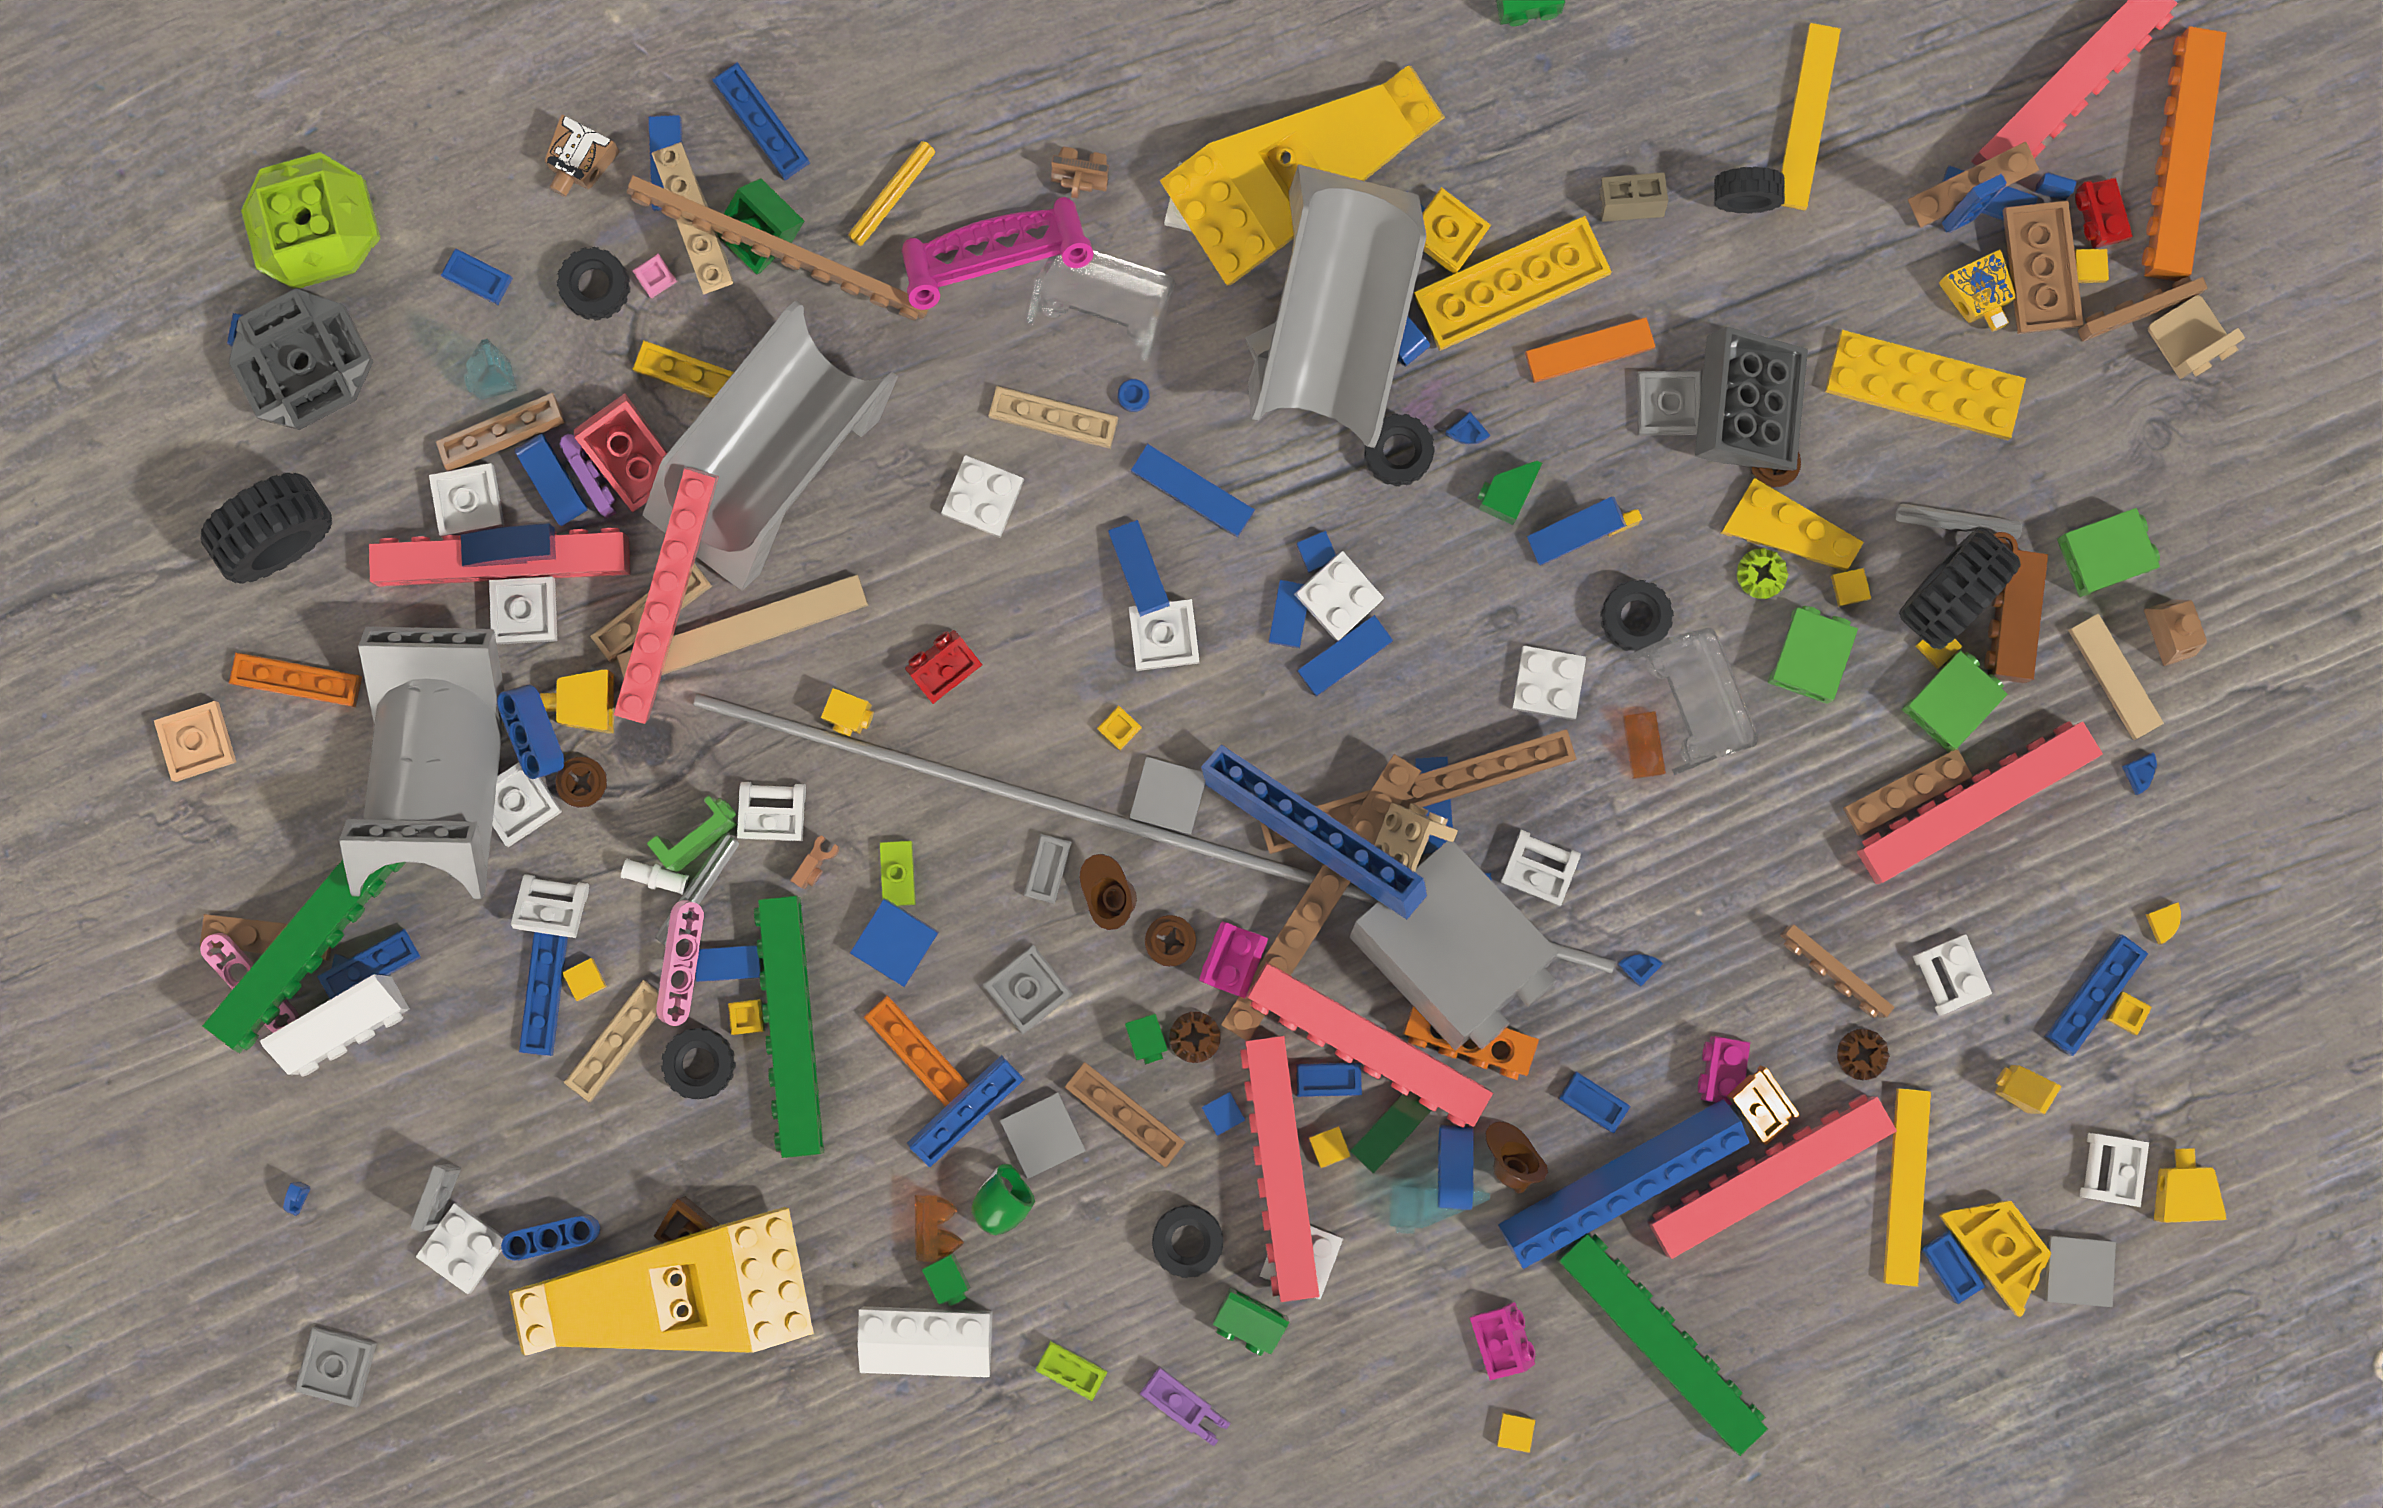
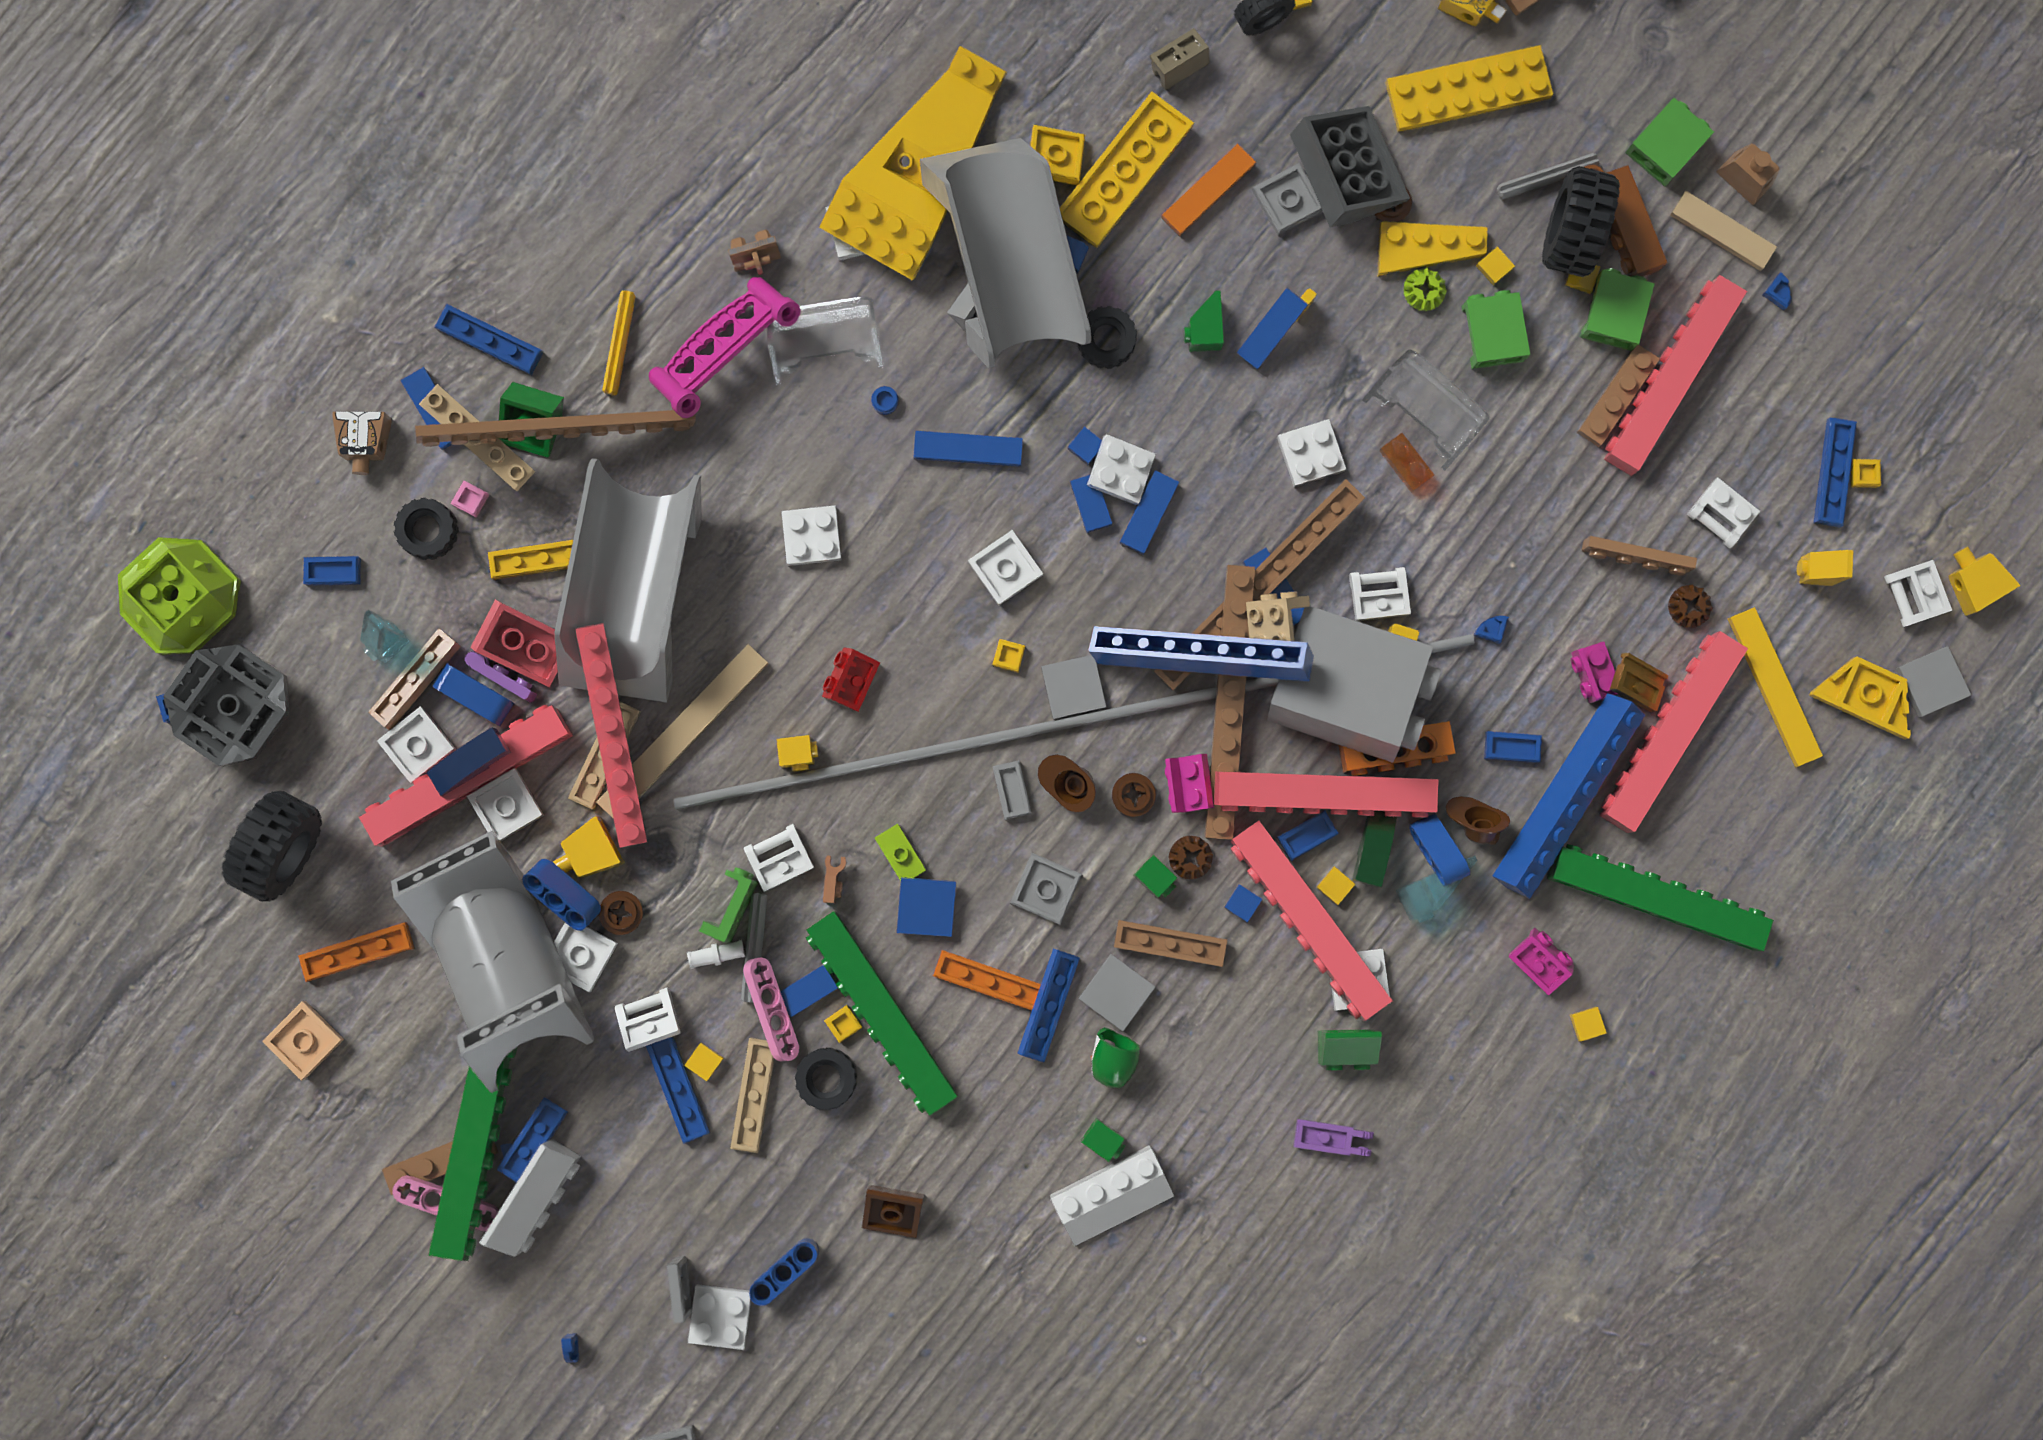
camera: 35 degrees left, 0 degrees up
(734, 1279) = (943, 1230): yellow wing -> none
(930, 1241) = (1074, 1117): clear orange tile -> none
(1053, 417) = (833, 448): tan tile -> none
(1071, 1370) = (1233, 1157): lime plate -> none
(1139, 568) = (959, 527): blue tile -> none
(1205, 1258) = (1288, 1005): black tyre -> none
(1468, 430) = (1150, 296): blue tile -> none
(1541, 922) = (1404, 631): none -> yellow tile
(1636, 591) = (1354, 348): black tyre -> none
(1952, 1267) = (1839, 728): blue tile -> none
(2165, 922) = (1855, 392): yellow tile -> none

